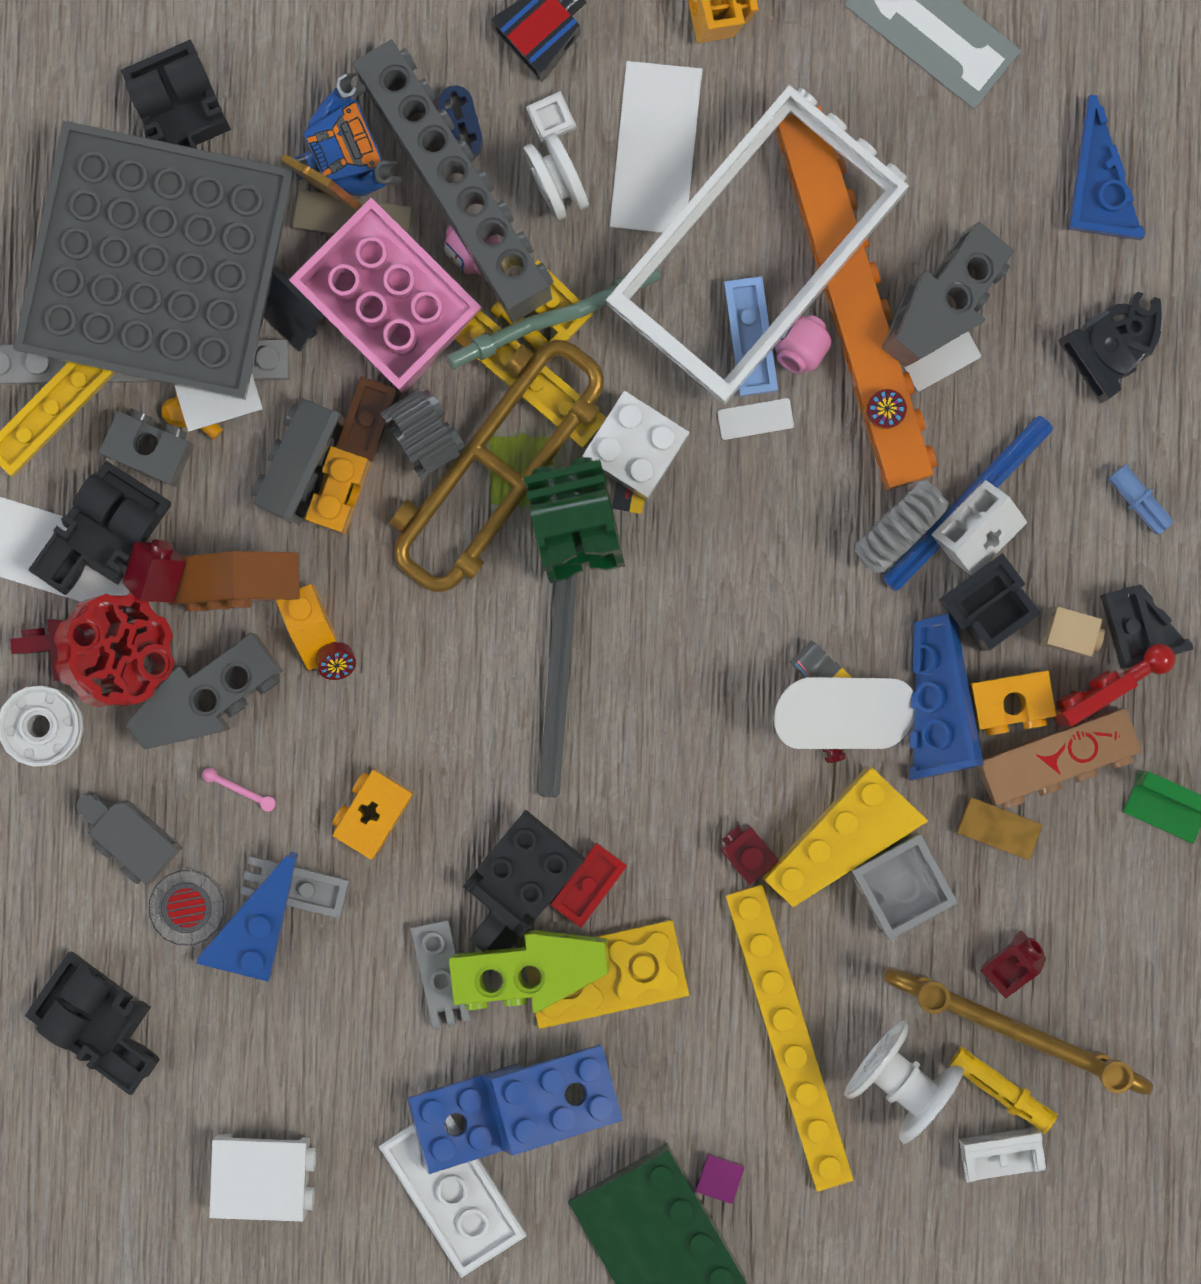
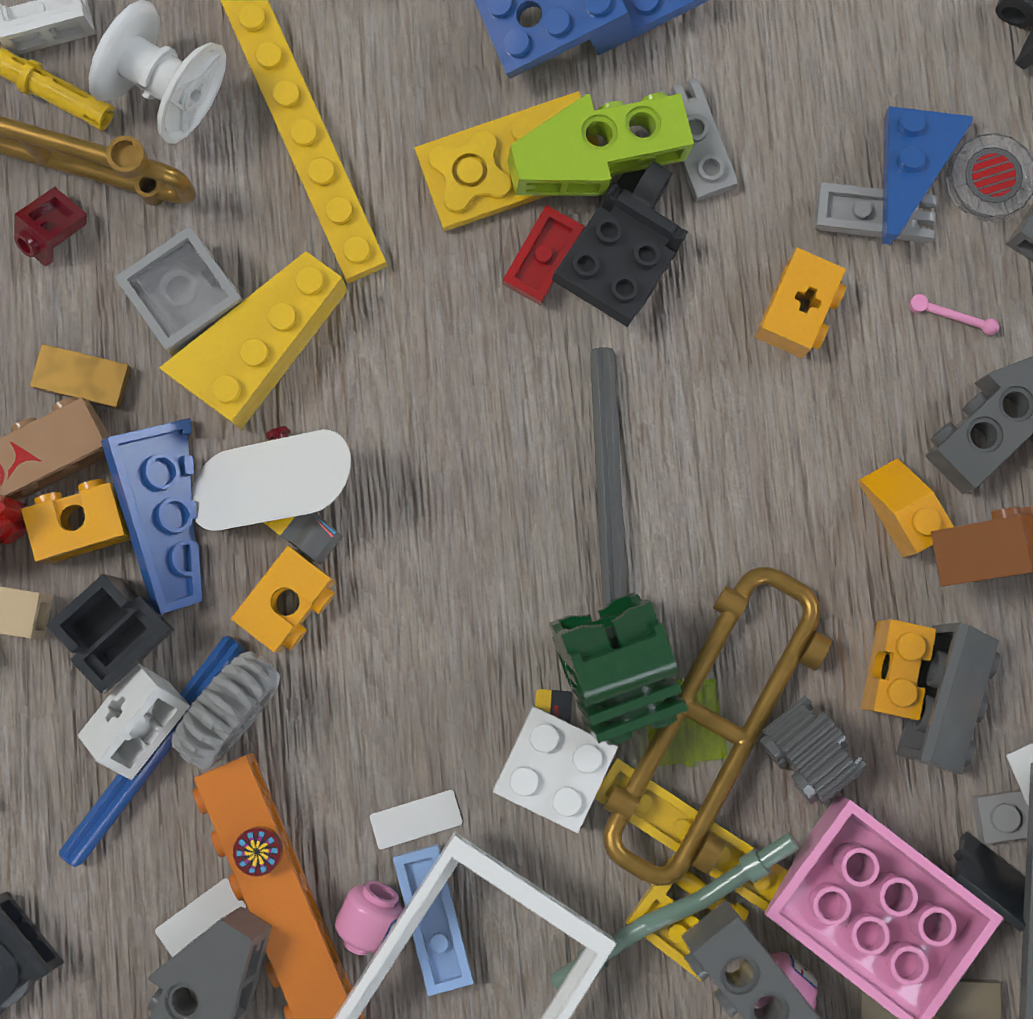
camera: 170 degrees right, 5 degrees down
(335, 661) = (869, 471): tile -> none
(363, 423) = (881, 746): reddish brown plate -> none
(748, 853) = (366, 313): dark red bracket -> none
(864, 601) = (260, 610): none -> light orange brick

